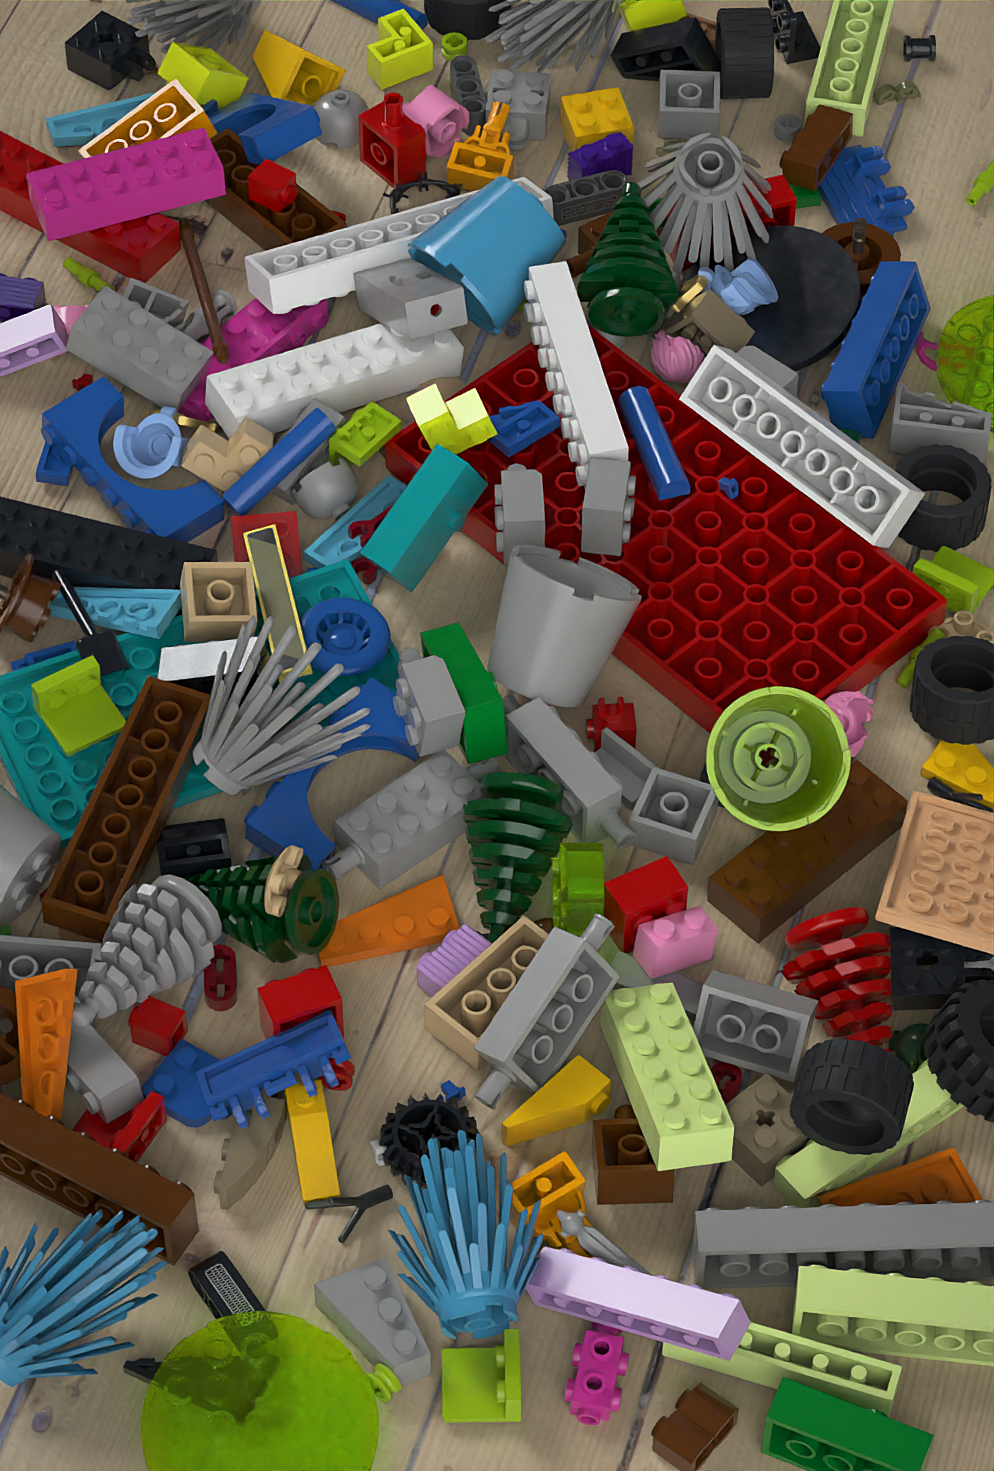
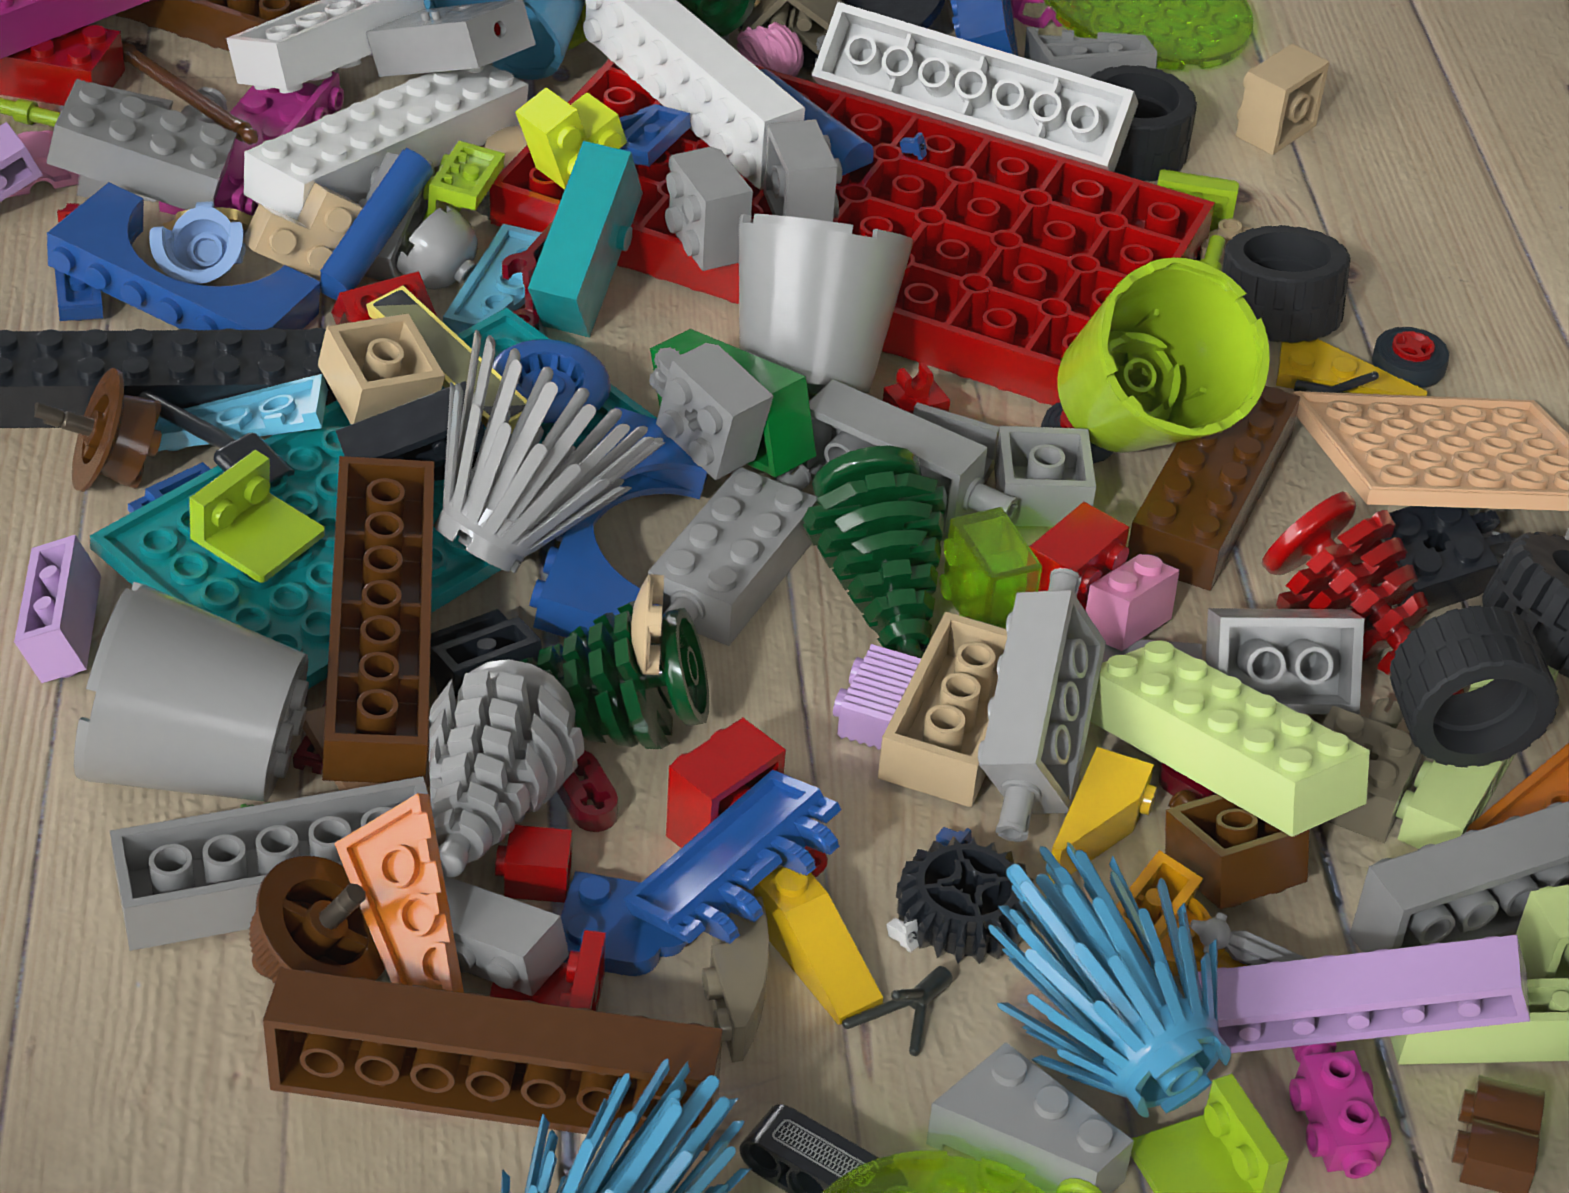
camera: 25 degrees left, 10 degrees down
(394, 925) = (776, 674): orange wing -> none

